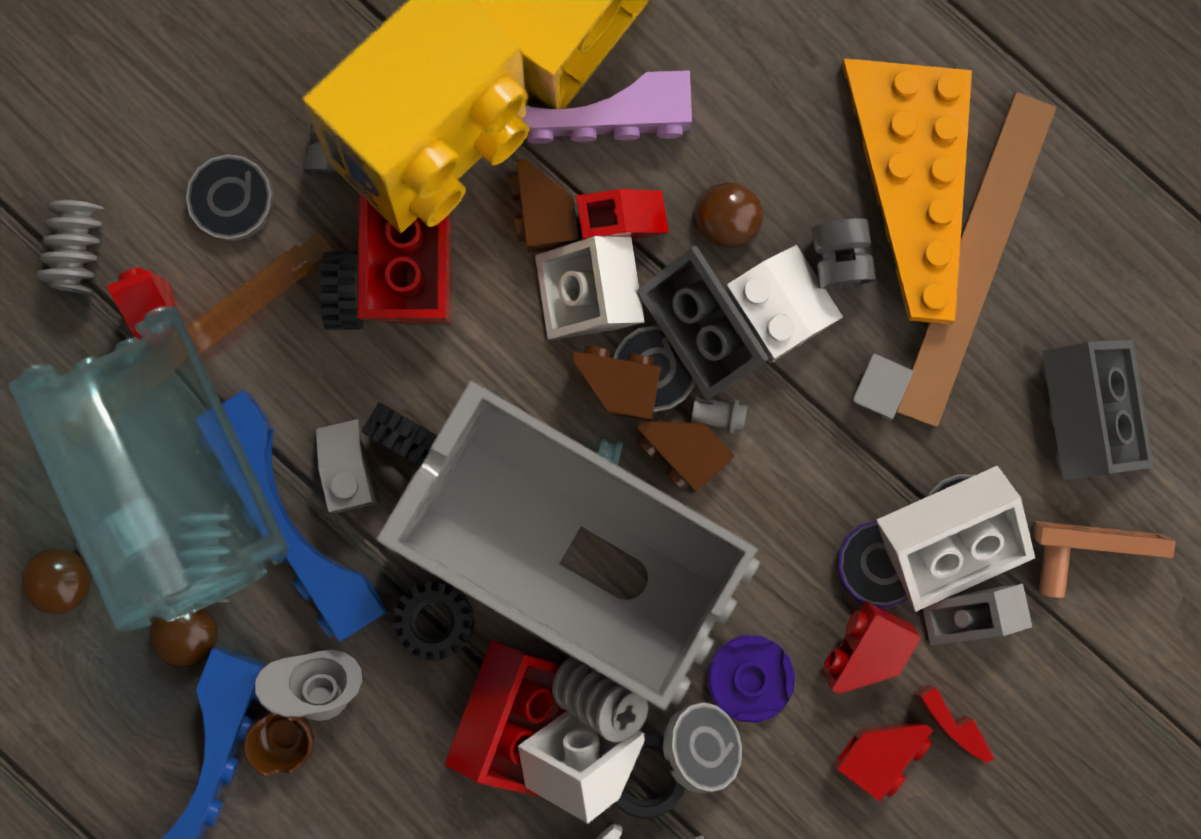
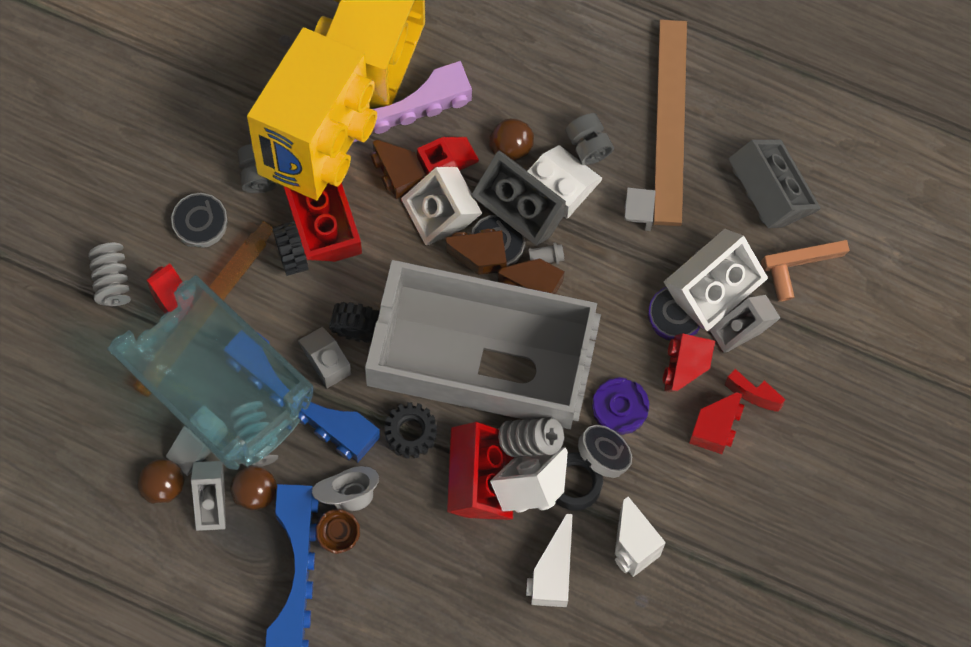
camera: 25 degrees left, 15 degrees down
(105, 647) = (208, 495): none -> light grey slope
(916, 157) = (615, 75): light orange wing -> none

